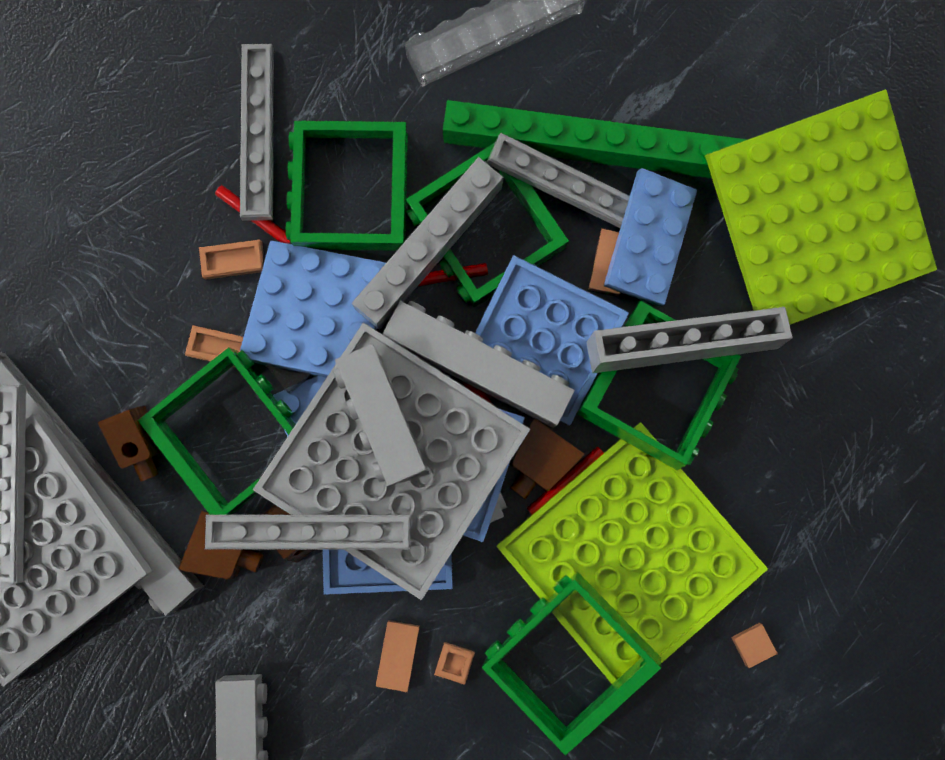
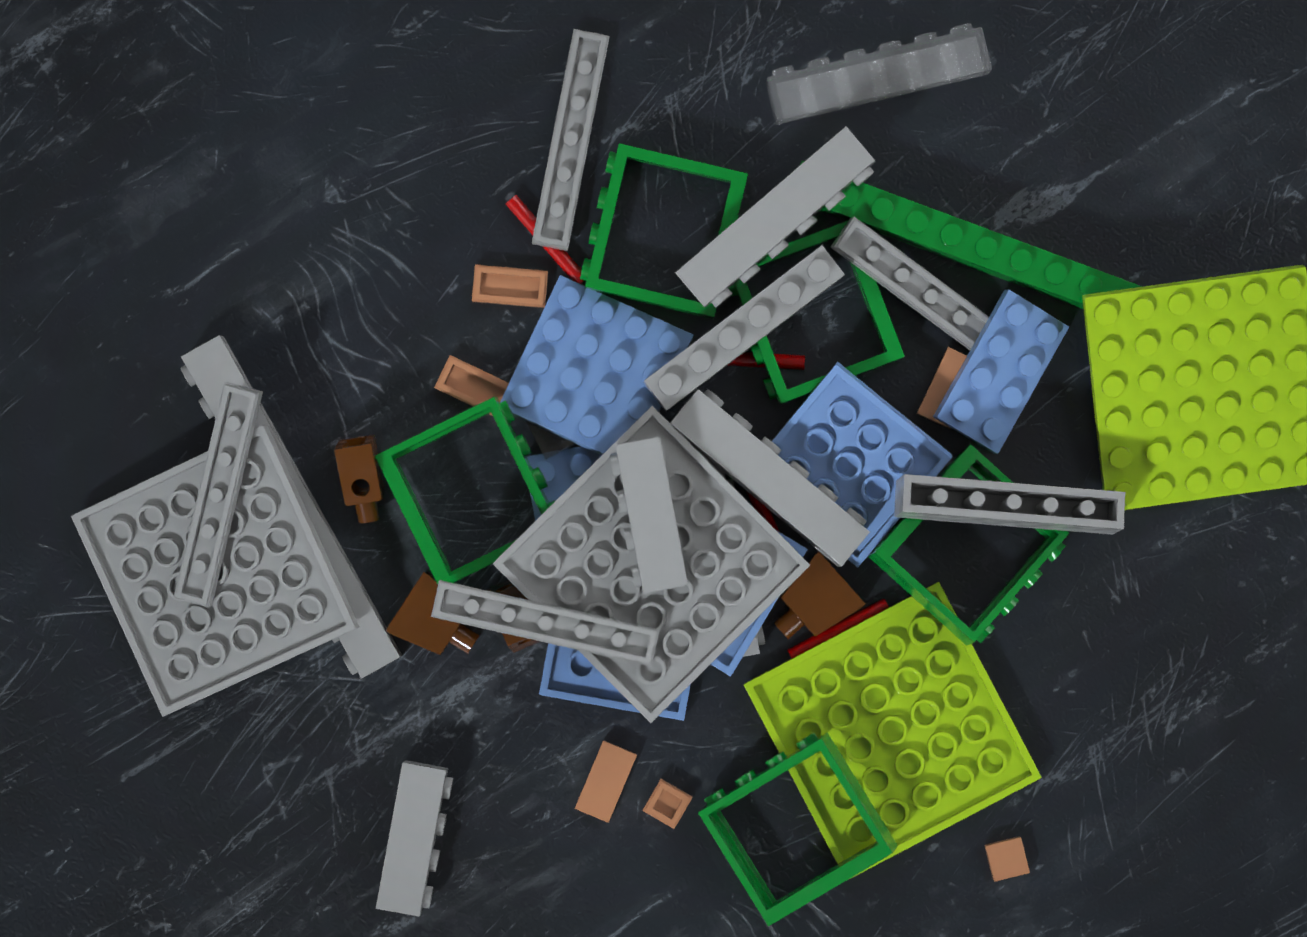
camera: 10 degrees right, 5 degrees up
(436, 144) = (775, 217): none -> light grey brick

